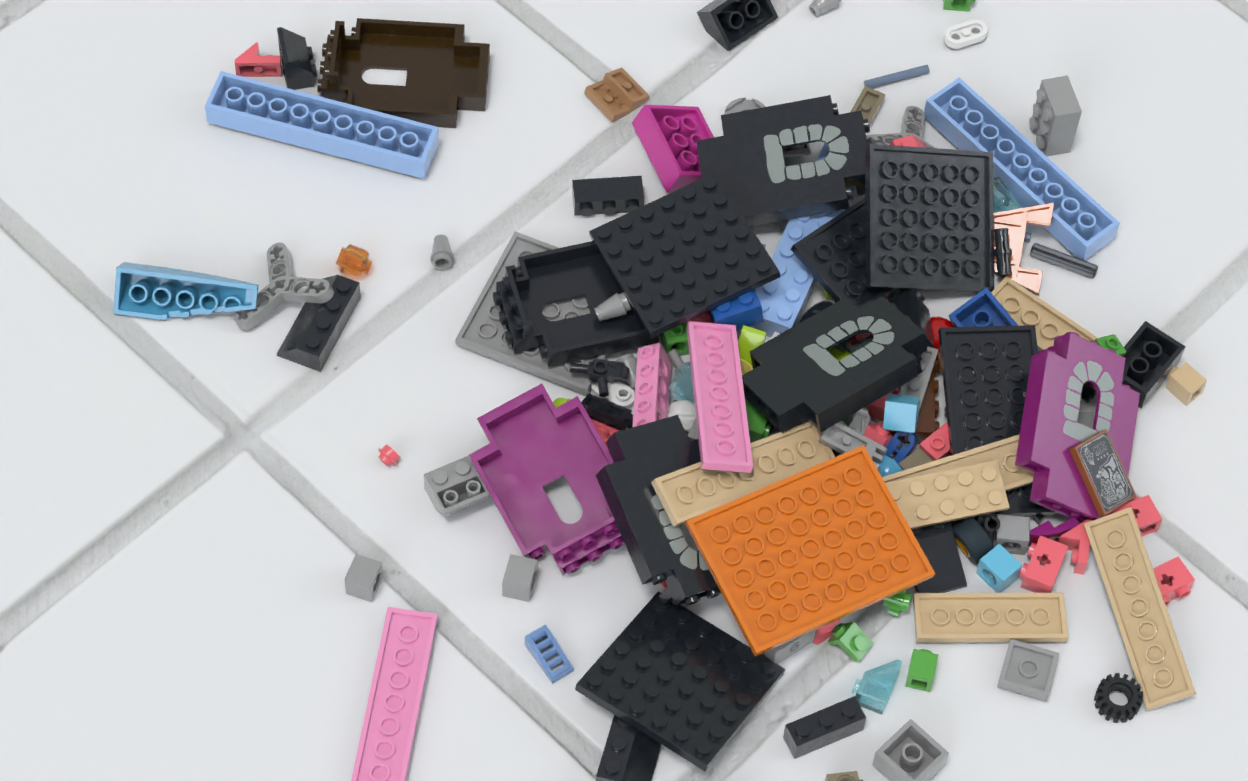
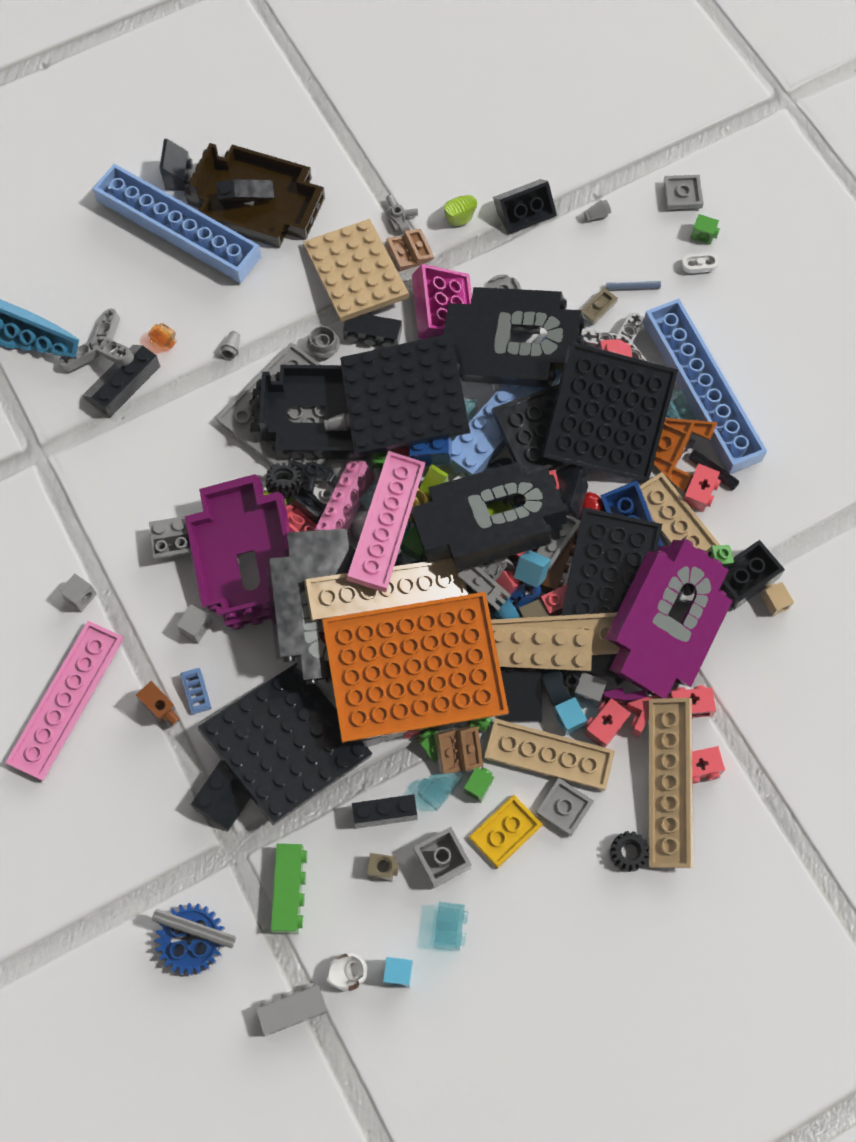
camera: 20 degrees right, 10 degrees up
(253, 65) = (145, 162): coral slope -> none
(388, 456) = (133, 498): coral plate -> none
(393, 69) = (244, 191): none -> black slope
(511, 677) = (151, 698): none -> dark orange torso
(553, 223) = (323, 342): none -> light grey piece
(562, 131) = (355, 270): none -> tan plate
(569, 384) = (283, 472): none -> black tyre
(589, 57) = (397, 215): none -> light grey piece
(663, 34) = (460, 209): none -> lime hair
(885, 637) = (458, 749): none -> medium nougat slope
(969, 715) = (505, 831): none -> yellow tile
(1002, 252) = (666, 438): black pin -> none
(1055, 116) = (745, 348): light grey brick -> none
(1057, 282) = (705, 478): none -> coral brick
(1102, 472) = (677, 661): tile -> none

